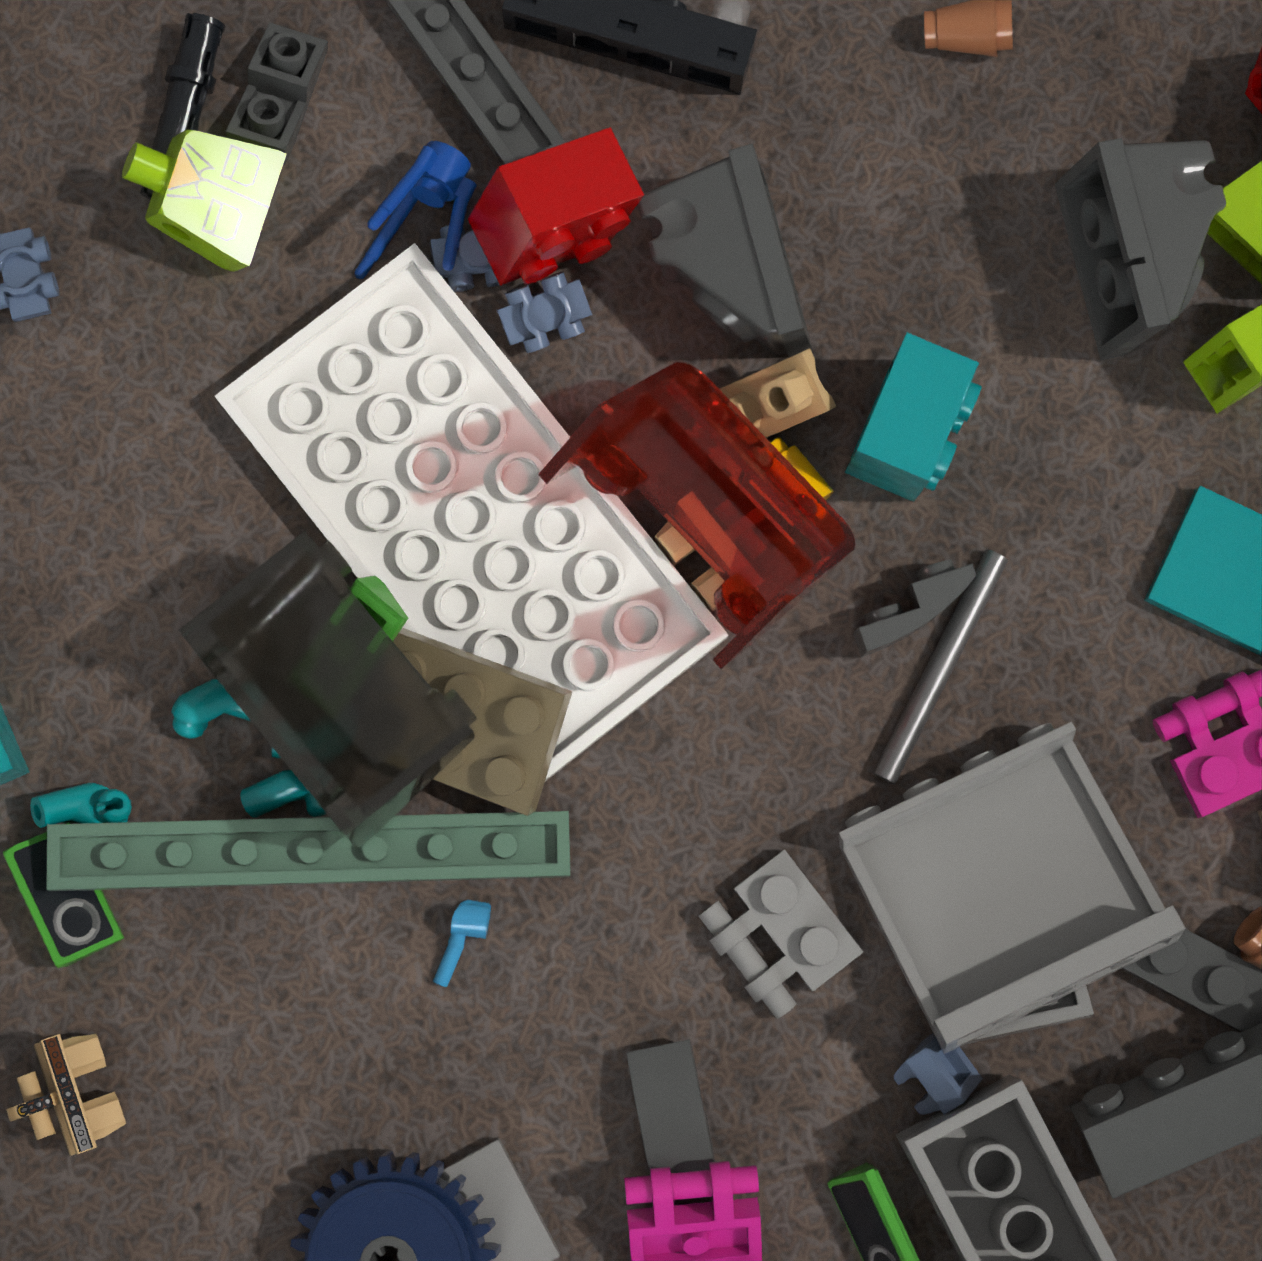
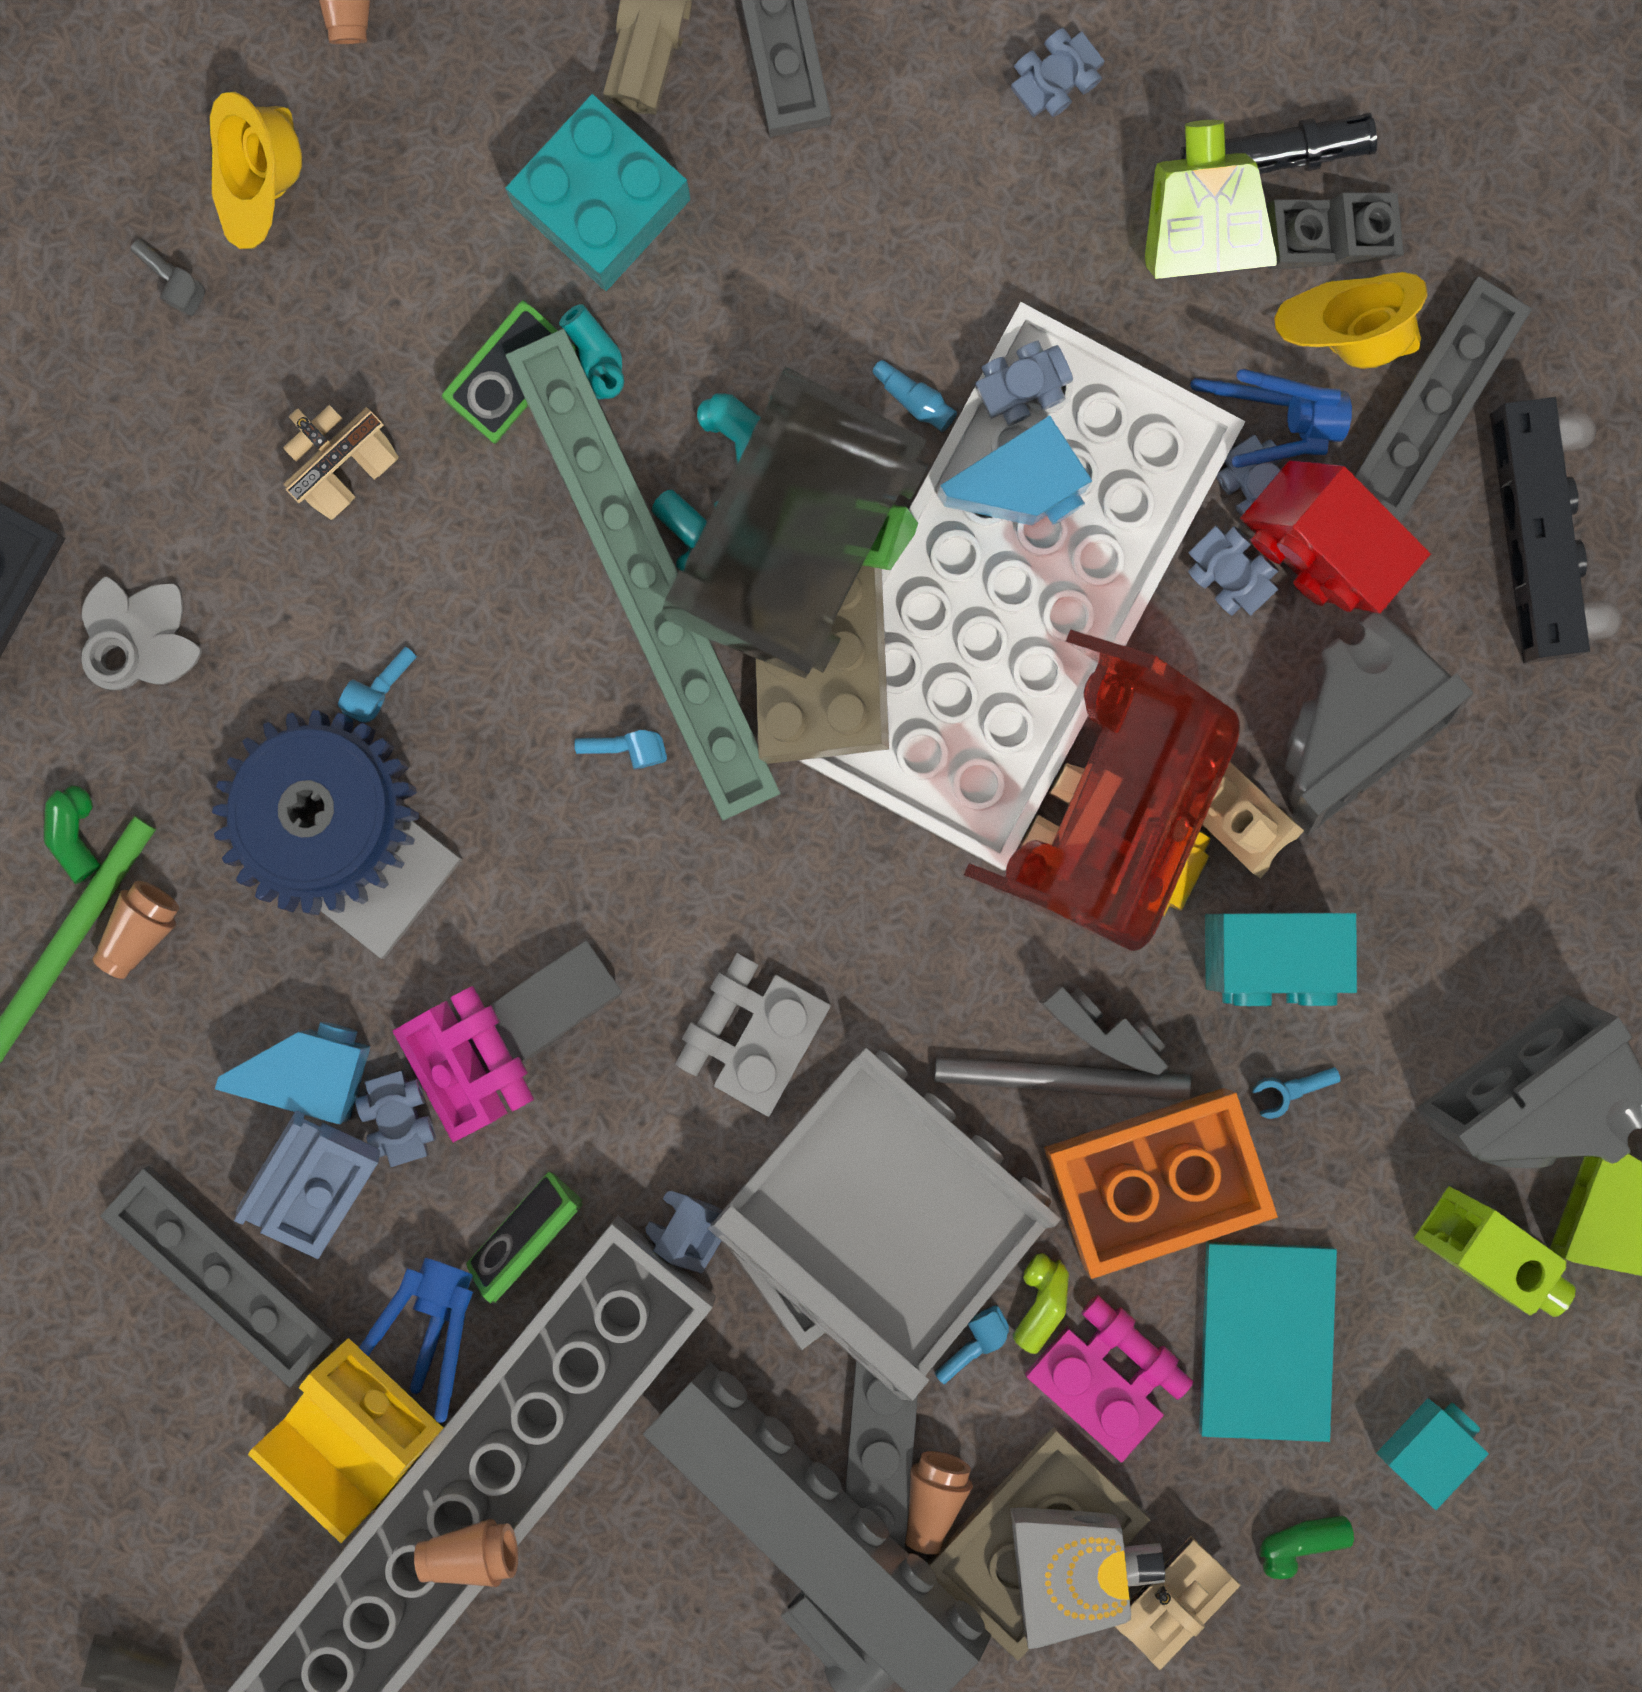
camera: 75 degrees right, 5 degrees up
(260, 527) = (918, 398): none -> dark azure piece
(288, 415) = (1033, 376): none -> sand blue piece
(311, 1167) = (365, 702): none -> dark azure hand
(367, 104) = (1357, 318): none -> yellow piece
(378, 462) = (1022, 479): none -> dark azure slope
(1038, 461) = (1295, 1089): none -> dark azure hand
(1074, 617) = (1160, 1182): none -> orange brick
(1144, 766) = (1050, 1304): none -> lime arm
(1149, 833) = (990, 1334): none -> dark azure hand

